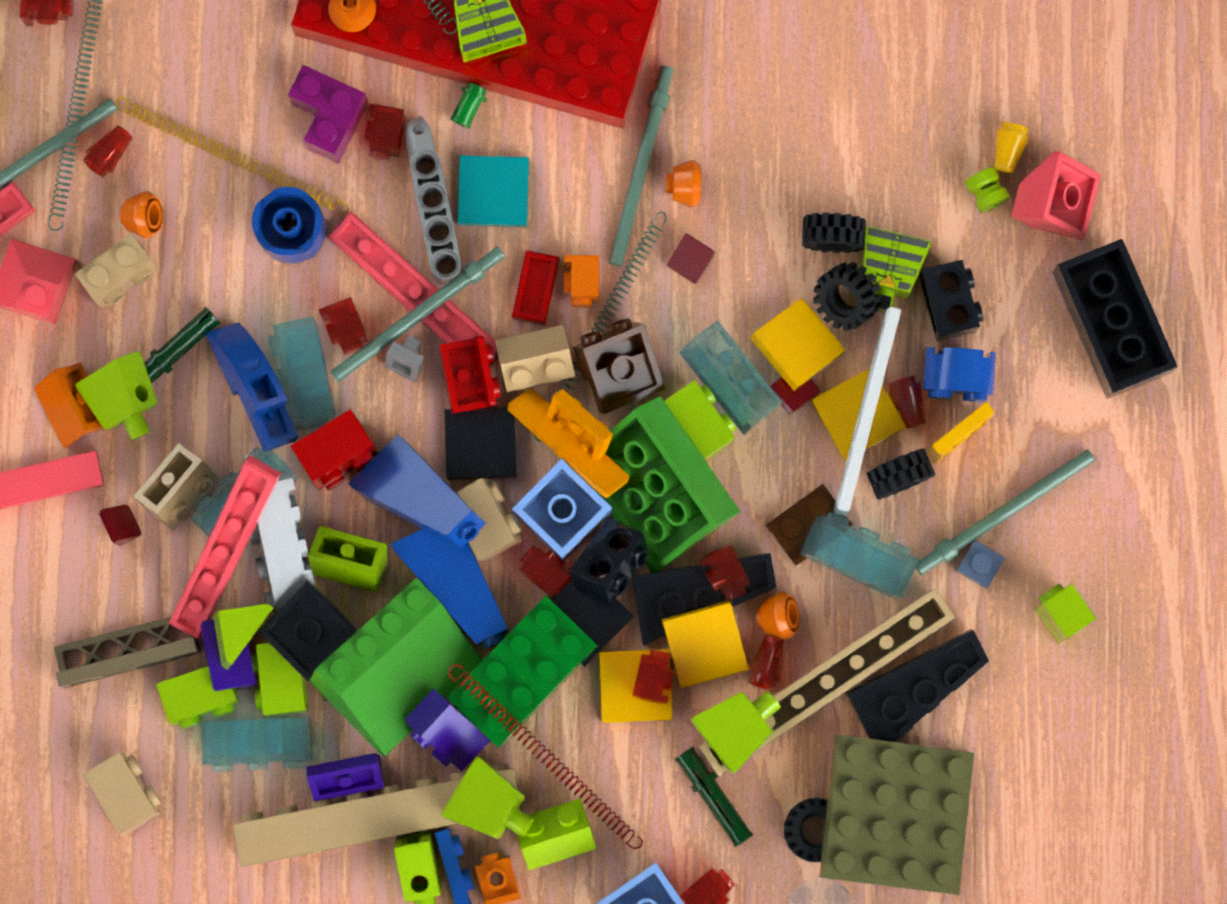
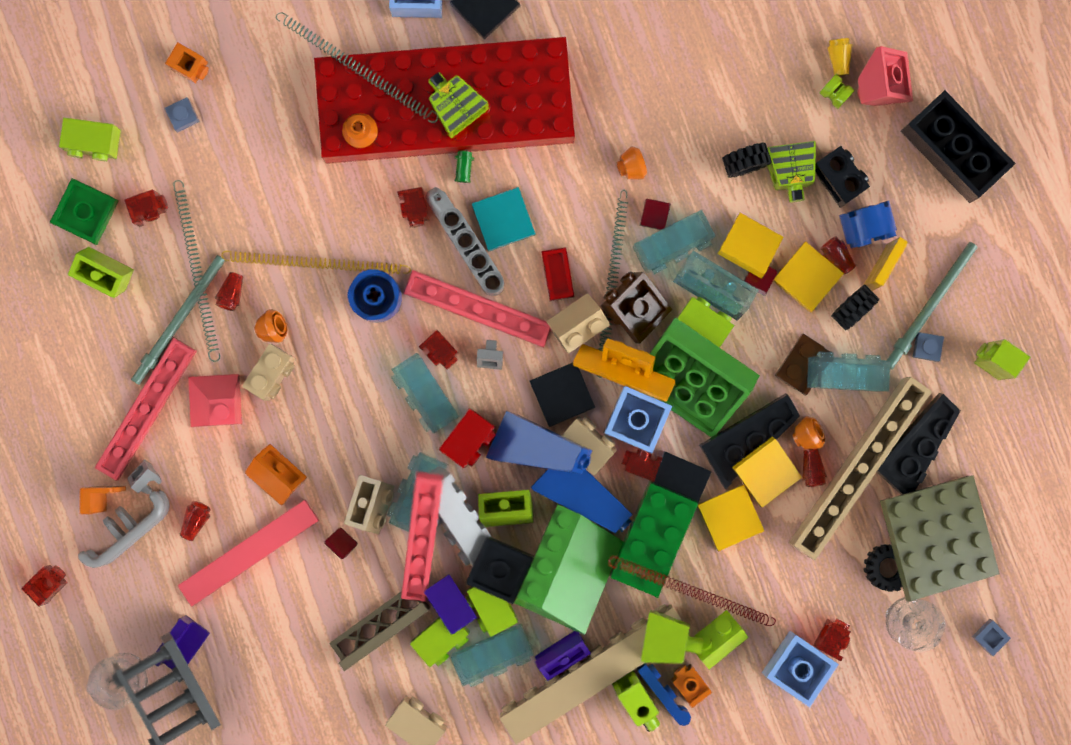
camera: 25 degrees left, 5 degrees up
(120, 394) = (306, 456): lime torso -> none
(179, 344) = (325, 419): dark green pin -> none
(236, 628) = (451, 589): lime slope -> none
(255, 383) = (395, 413): blue slope -> none
(335, 108) = (374, 202): magenta brick -> none
(447, 730) = (618, 600): dark purple brick -> none
(469, 374) = (538, 351): red bracket -> none
(472, 273) = (512, 281): sand green bar -> none
(582, 280) = (588, 257): orange brick -> none
(603, 558) = (677, 442): black brick -> none
(653, 677) = (743, 509): clear red brick -> none
(657, 101) = (591, 116): sand green bar -> none
(688, 762) = (836, 588): dark green pin -> none
(700, 303) = (674, 242): none -> clear light blue brick
(726, 572) = (764, 419): clear red brick -> none
(736, 727) = (817, 524): lime torso -> none
(858, 284) = (776, 188): black tyre -> none
(867, 411) = (816, 273): white tile -> none

